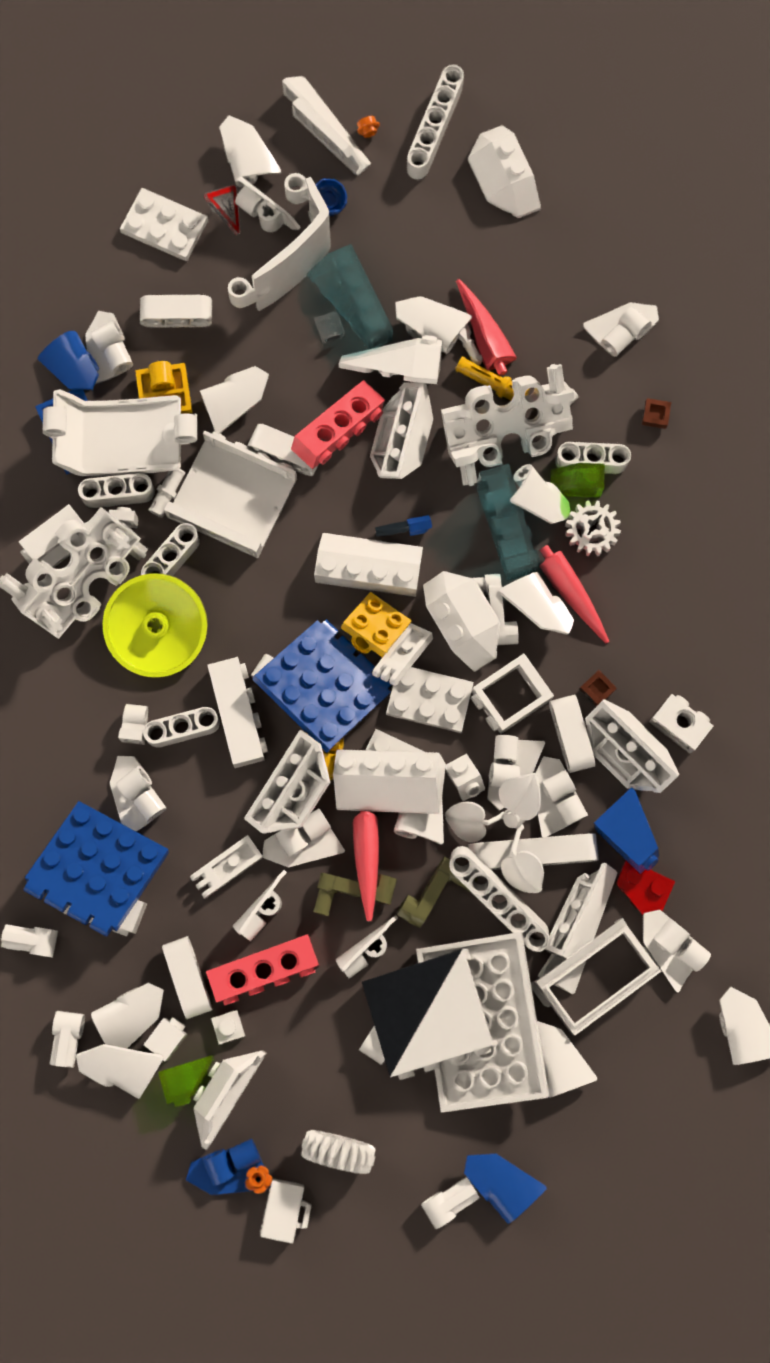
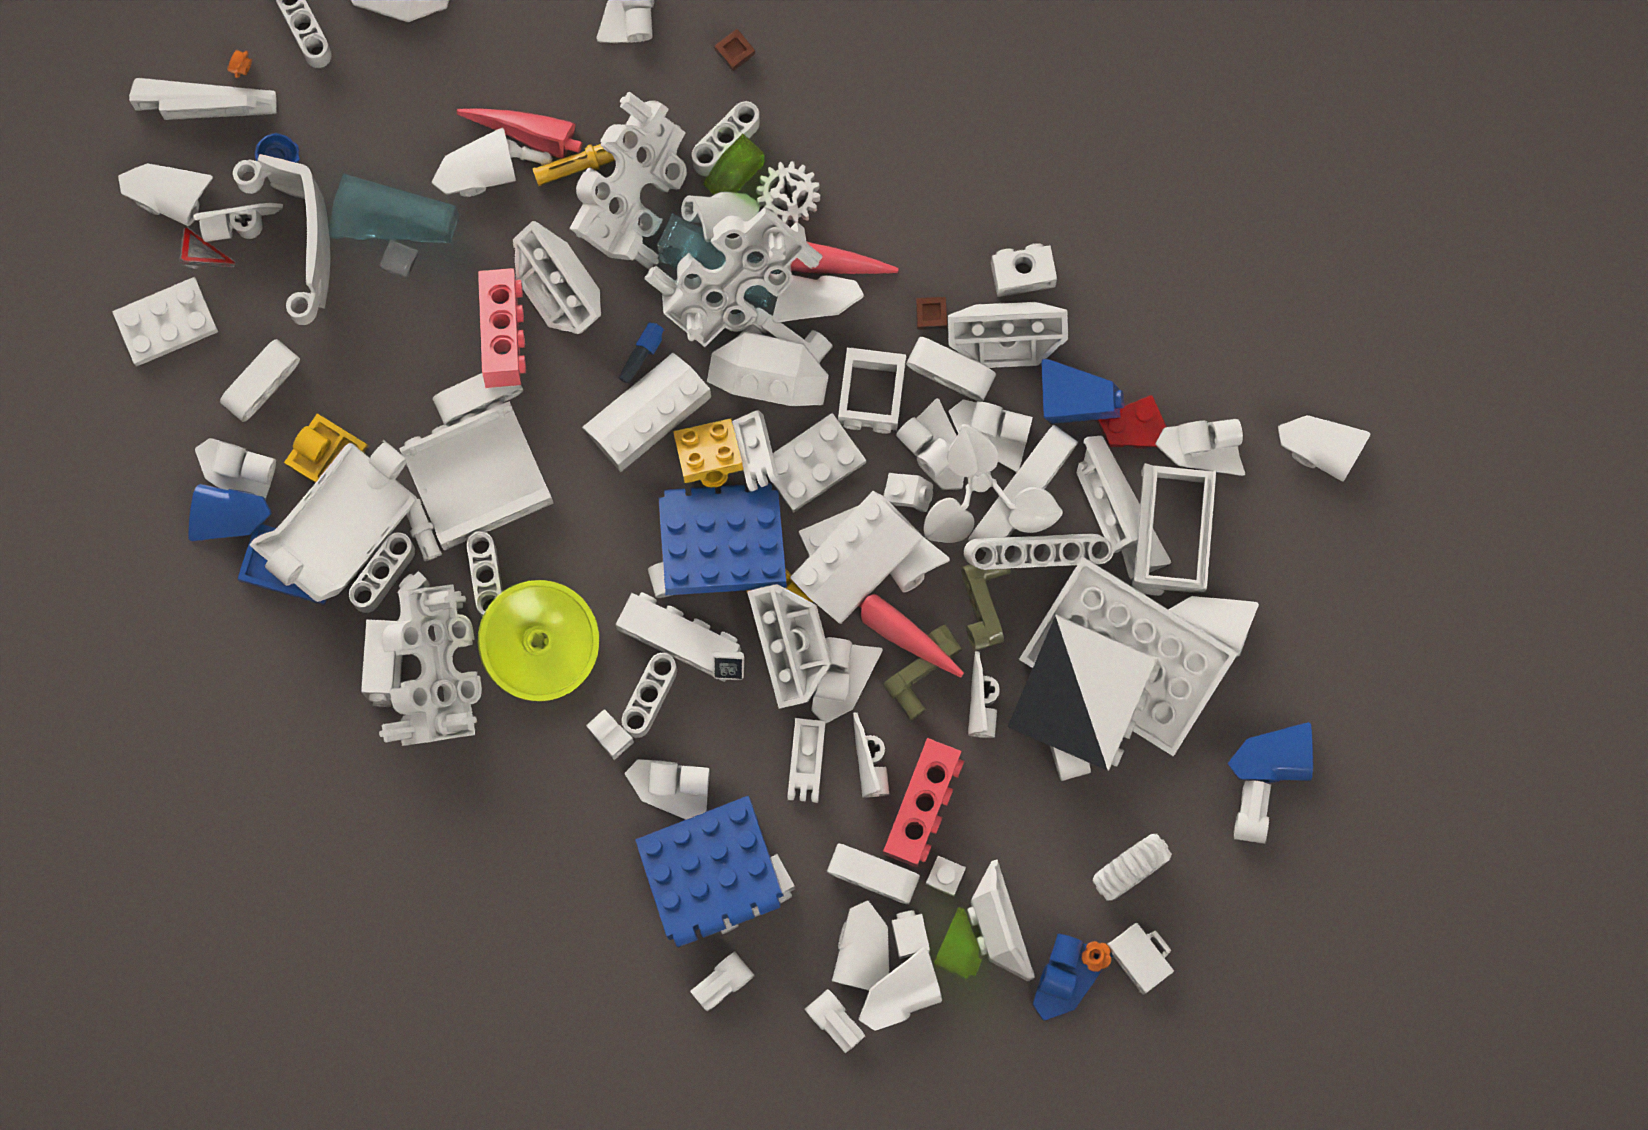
camera: 45 degrees left, 0 degrees up
(234, 396) = (389, 397): white panel -> none
(241, 760) = (728, 665): none -> slope
(415, 359) = (497, 212): white wedge -> none
(545, 530) = (686, 298): none -> white gear

